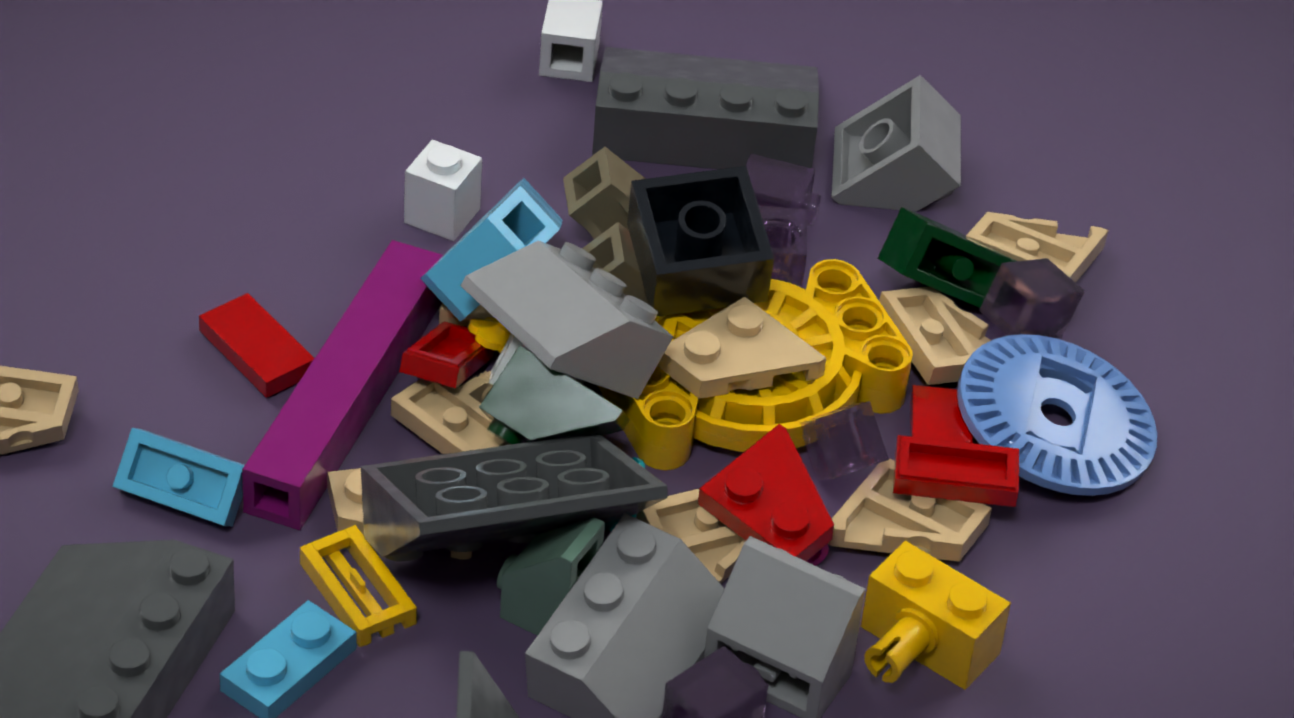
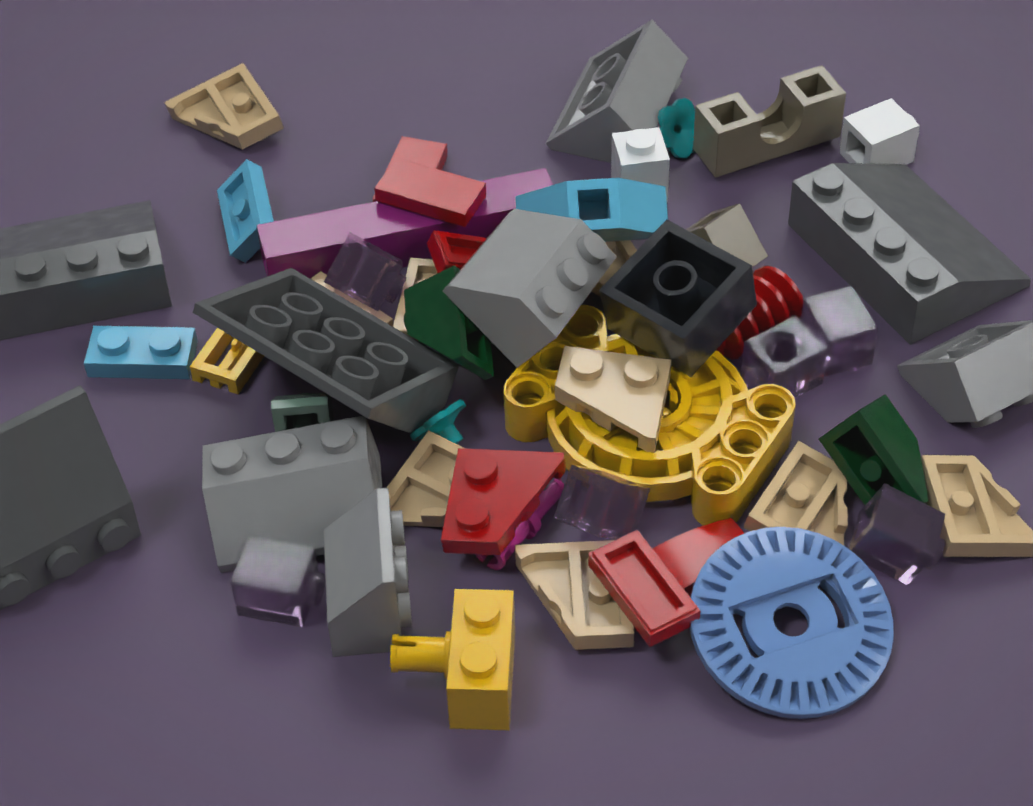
camera: 60 degrees right, 5 degrees up
(322, 149) = (619, 93): none -> light grey slope
(348, 325) = (430, 192): none -> tile
(389, 431) = (366, 272): none -> clear purple brick
(410, 132) = (678, 127): none -> teal plant
(483, 89) = (803, 115): none -> dark tan arch

